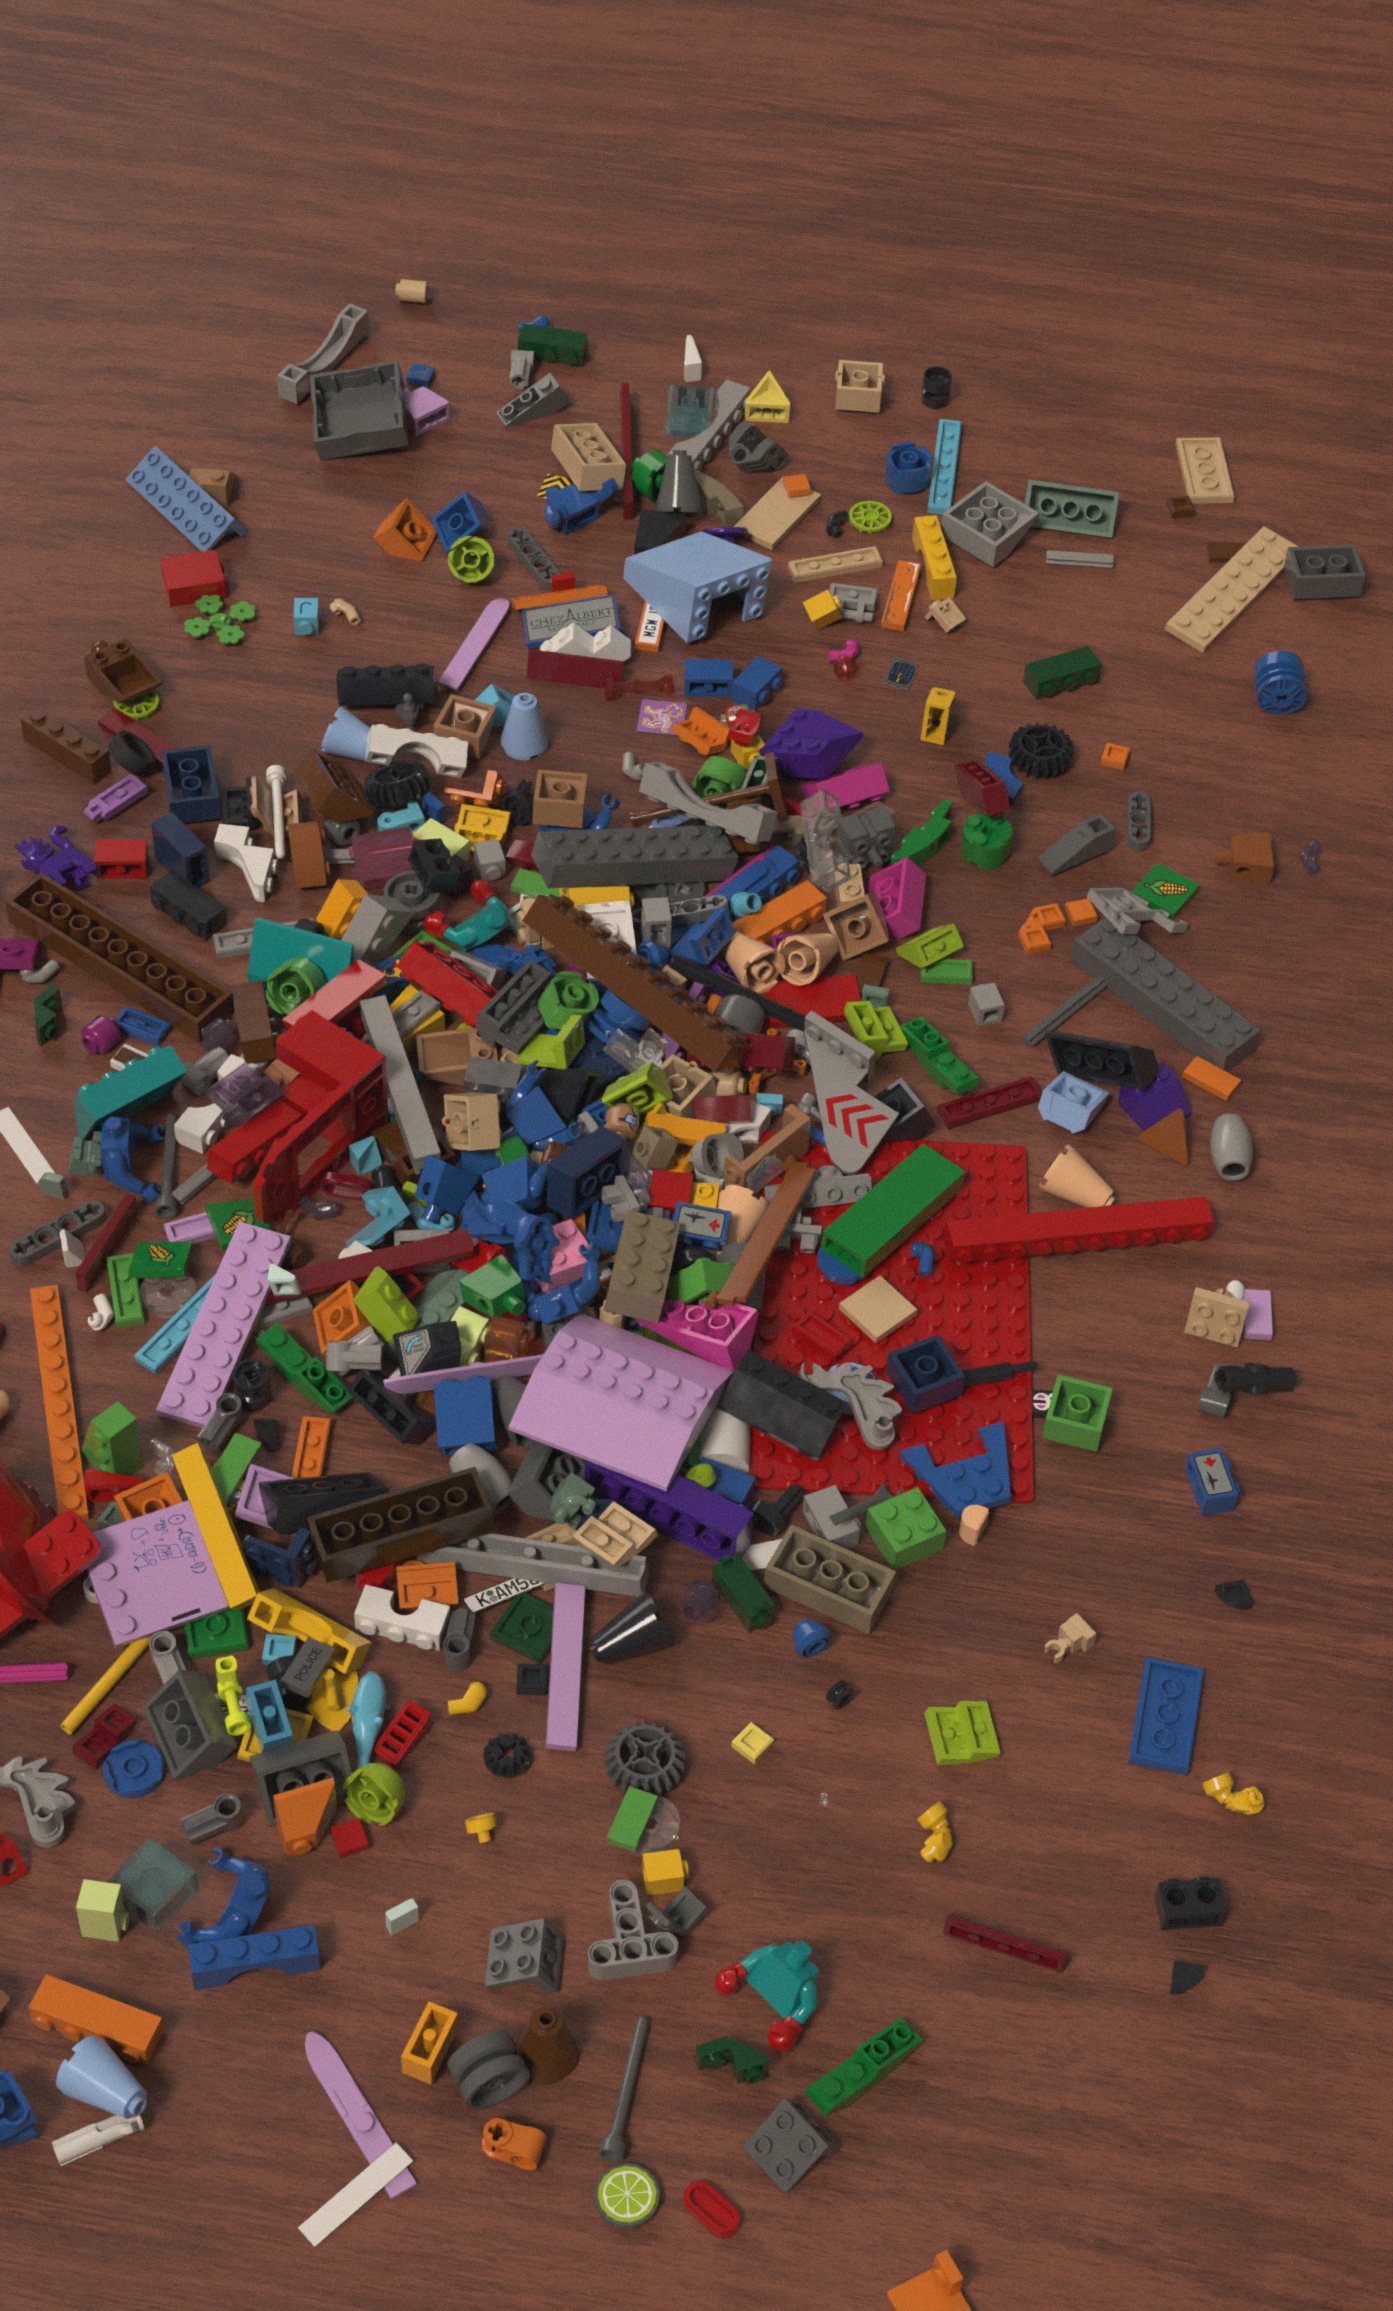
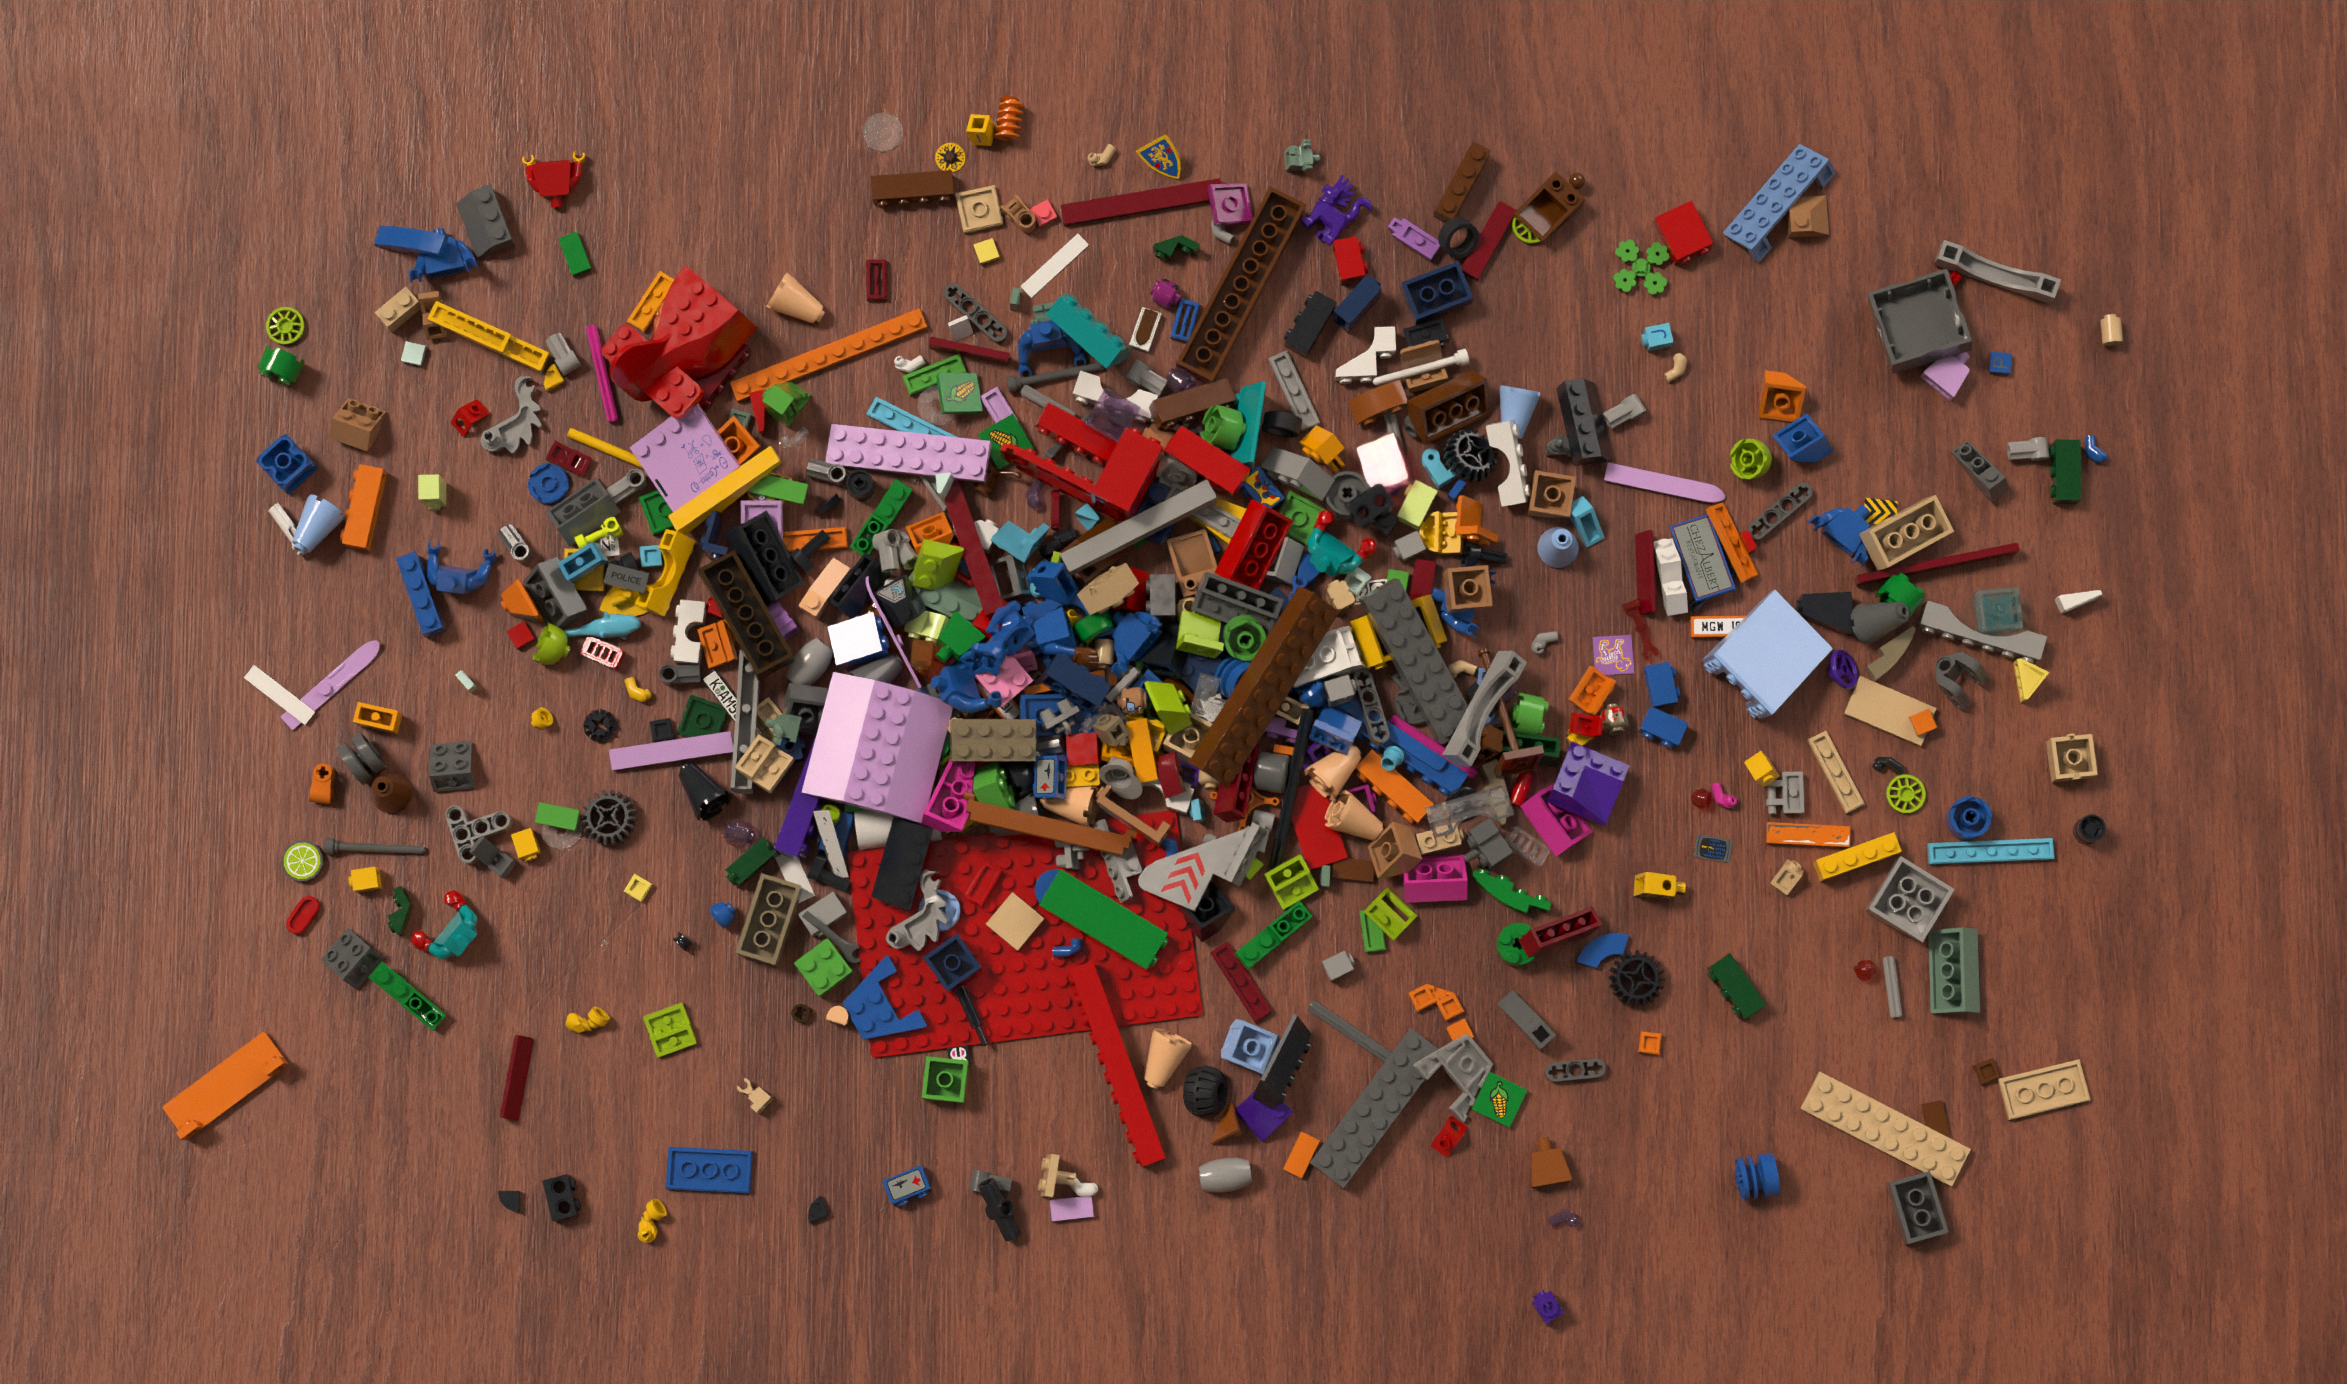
camera: 85 degrees right, 30 degrees up
(155, 1884) = (461, 518): clear light blue brick -> none
(329, 1463) = (801, 555): none -> black piece
(381, 652) = (1628, 409): none -> light grey piece
(385, 1454) = (828, 581): none -> light nougat slope
(675, 2102) = (365, 879): none -> yellow brick
(738, 1481) = (830, 843): none -> white sticker
(956, 1577) = (795, 1010): none -> dark brown bush
(1059, 573) = (1865, 970): none -> clear red plate
(1124, 1152) = (1205, 1091): none -> black wheel
(1208, 939) = (1448, 1137): none -> red bracket

